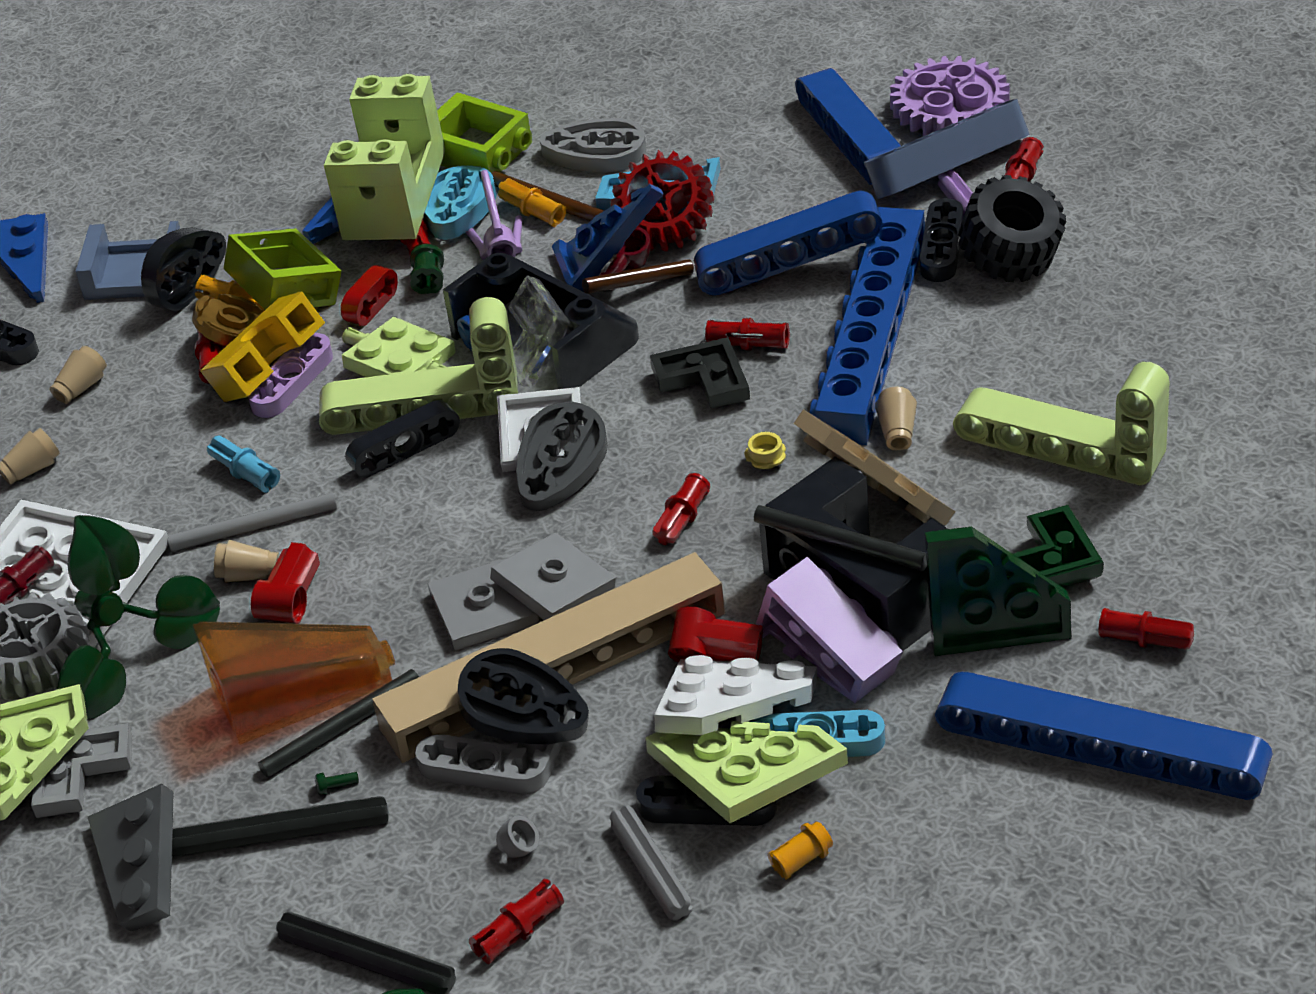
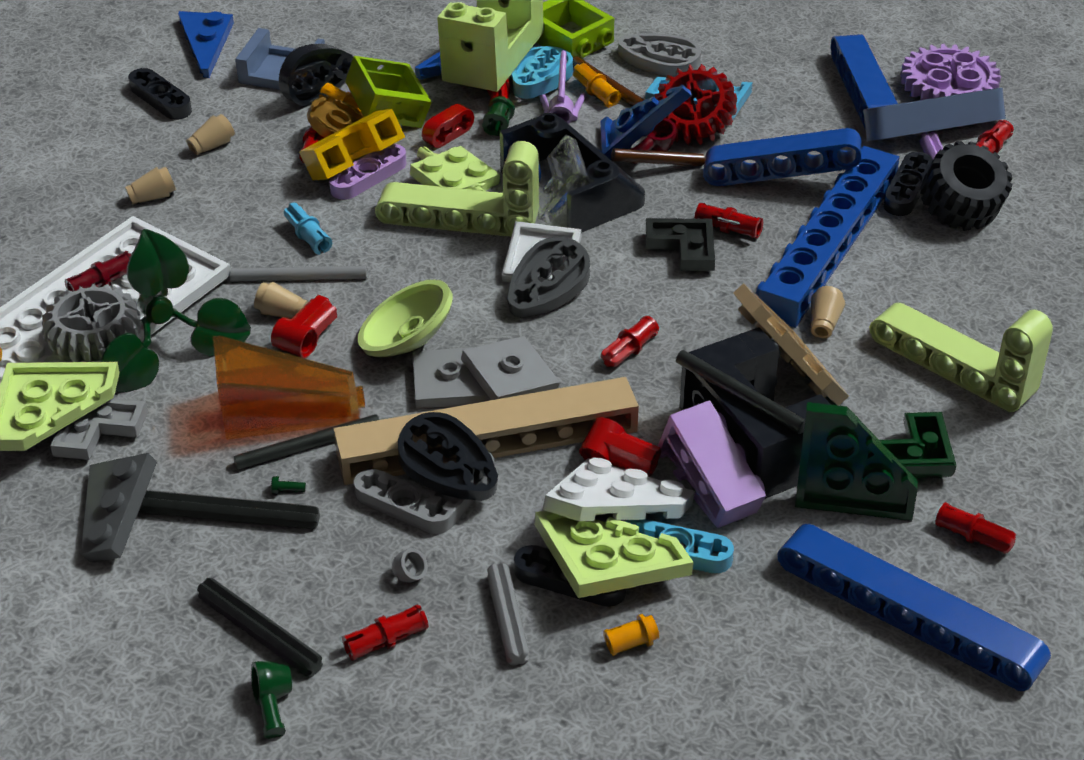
camera: 10 degrees right, 0 degrees up
(408, 546) = (406, 319): none -> yellowish green dish
(436, 423) = (411, 249): black beam -> none
(765, 450) = (712, 312): light yellow plate -> none

